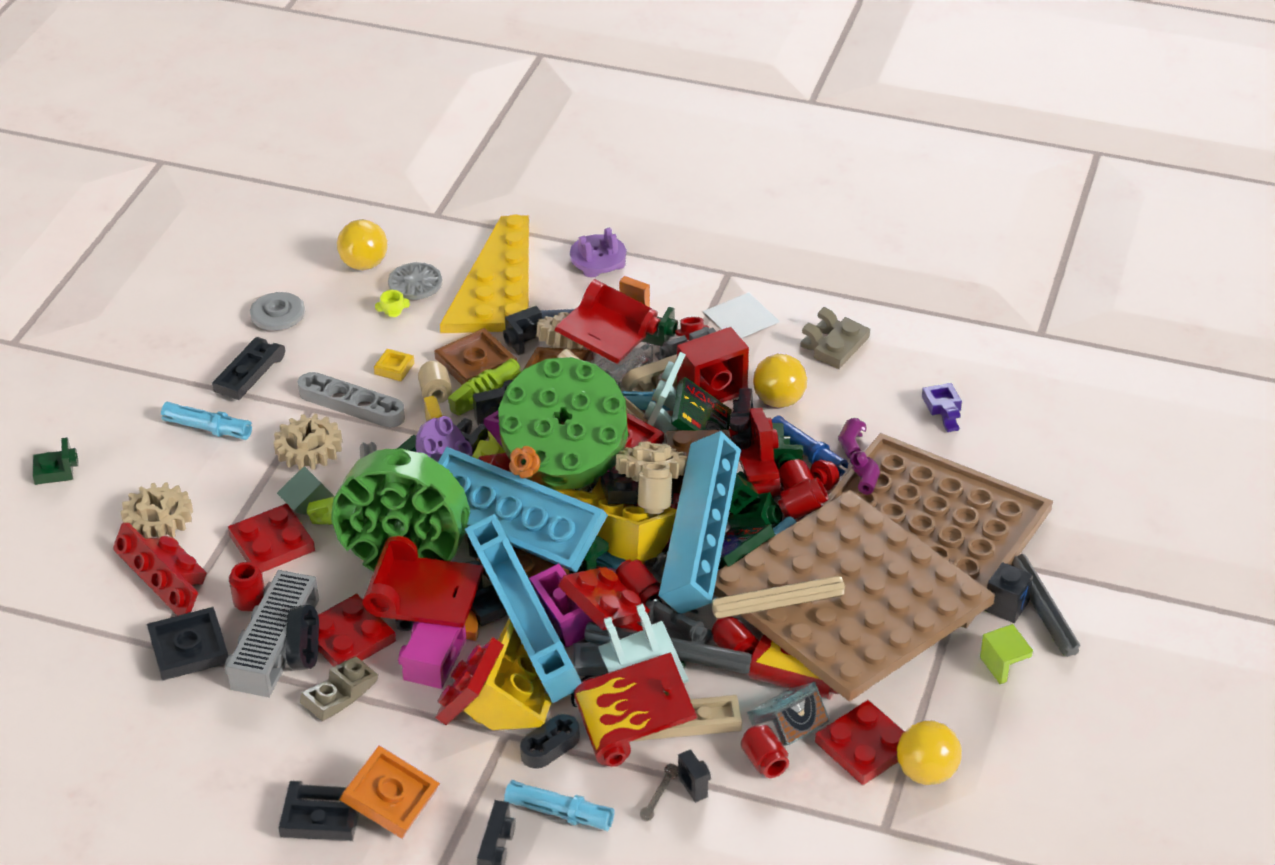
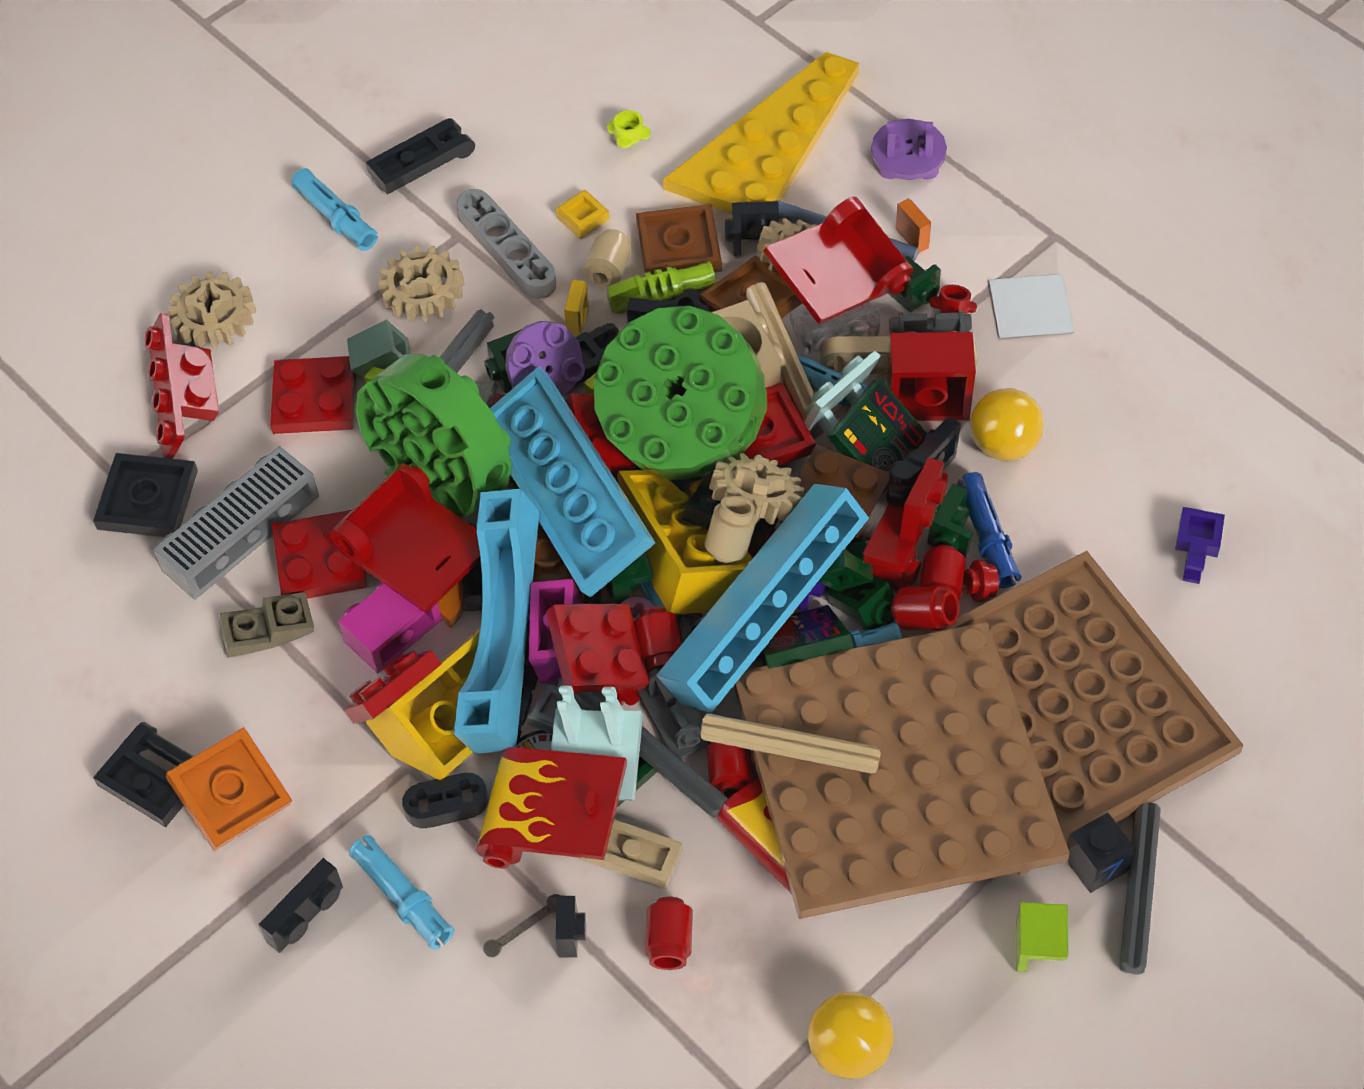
camera: 30 degrees right, 15 degrees up
(55, 466) = (150, 203): dark green bracket -> none
(246, 586) = (237, 450): red brick -> none
(277, 311) = (497, 89): light grey wheel -> none
(302, 637) = (257, 544): black beam -> none
(362, 244) = (634, 36): yellow piece -> none
(415, 280) = (674, 106): light grey wheel -> none
(532, 462) = (606, 433): orange plate -> none
(793, 712) = (729, 898): panel -> none
(842, 339) = (1127, 396): dark tan plate -> none
(848, 434) = (1046, 537): magenta arm -> none
(862, 742) = (795, 972): red plate -> none
(867, 470) = (1029, 603): magenta arm -> none

